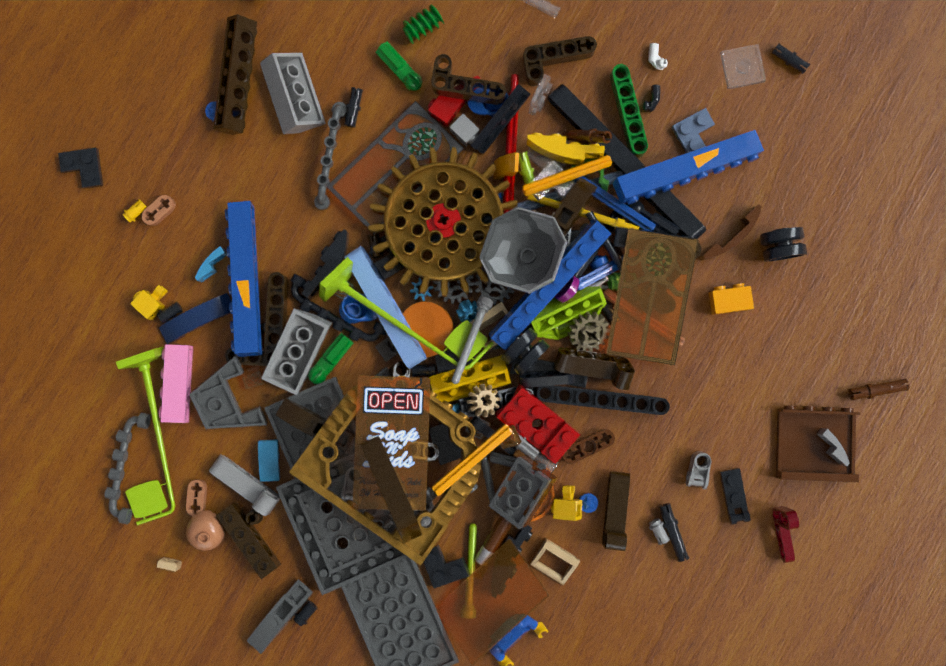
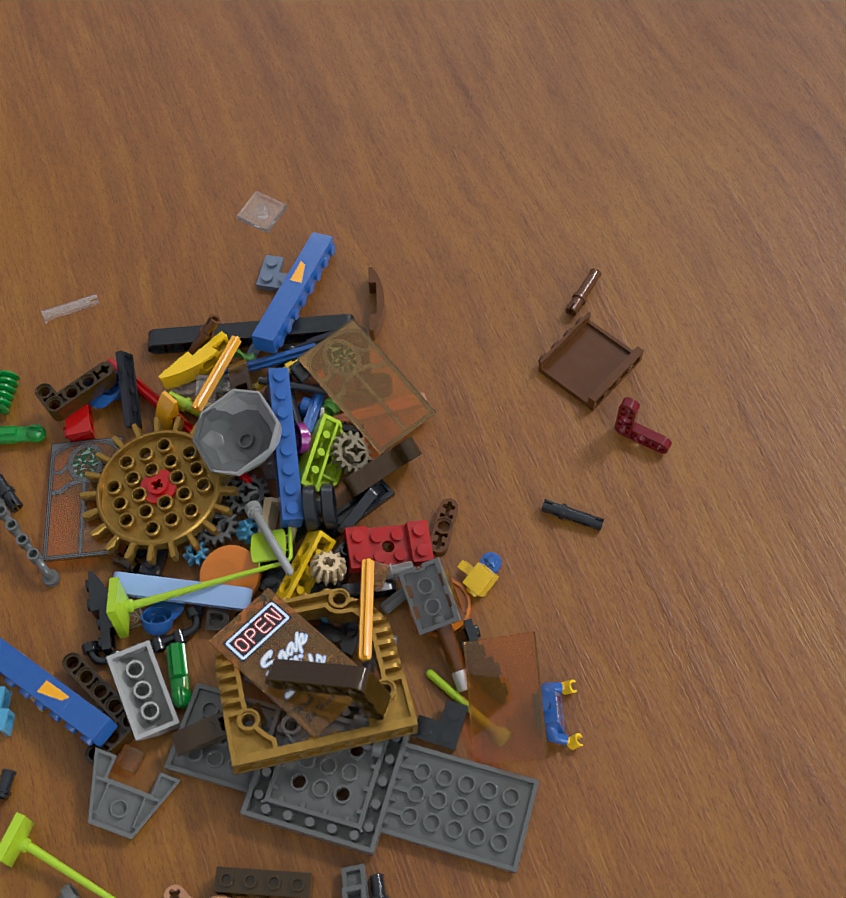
camera: 45 degrees left, 25 degrees down
(176, 383) = (68, 831): bright pink brick -> none
(195, 318) = (30, 766): dark blue slope -> none
(245, 484) = (213, 844): light grey beam -> none
(249, 517) = (253, 864): dark brown pin -> none
(268, 460) = (212, 805): dark azure slope -> none
(464, 130) = (110, 424): light grey brick -> none
(488, 478) = (408, 631): dark grey bar -> none
(539, 96) = (142, 353): clear plate -> none
(560, 55) = (115, 330): dark brown beam -> none
(560, 552) = (516, 615): tan tile -> none
(611, 403) = (417, 477): black beam -> none
(616, 511) = (516, 545): dark brown beam -> none
(628, 102) = (213, 302): green beam -> none
(655, 98) = (225, 281): black arm -> none
(658, 62) = (196, 262): white arm -> none
(659, 531) = (562, 525): light grey pin -> none
(698, 471) = (539, 460): light grey piece -> none
(731, 300) = (422, 338): light orange brick -> none
(734, 495) = (581, 449): black plate -> none
(783, 244) = (413, 272): black wheel -> none
(791, 58) = (287, 180): black pin -> none
(836, 450) = (607, 349): light grey slope -> none

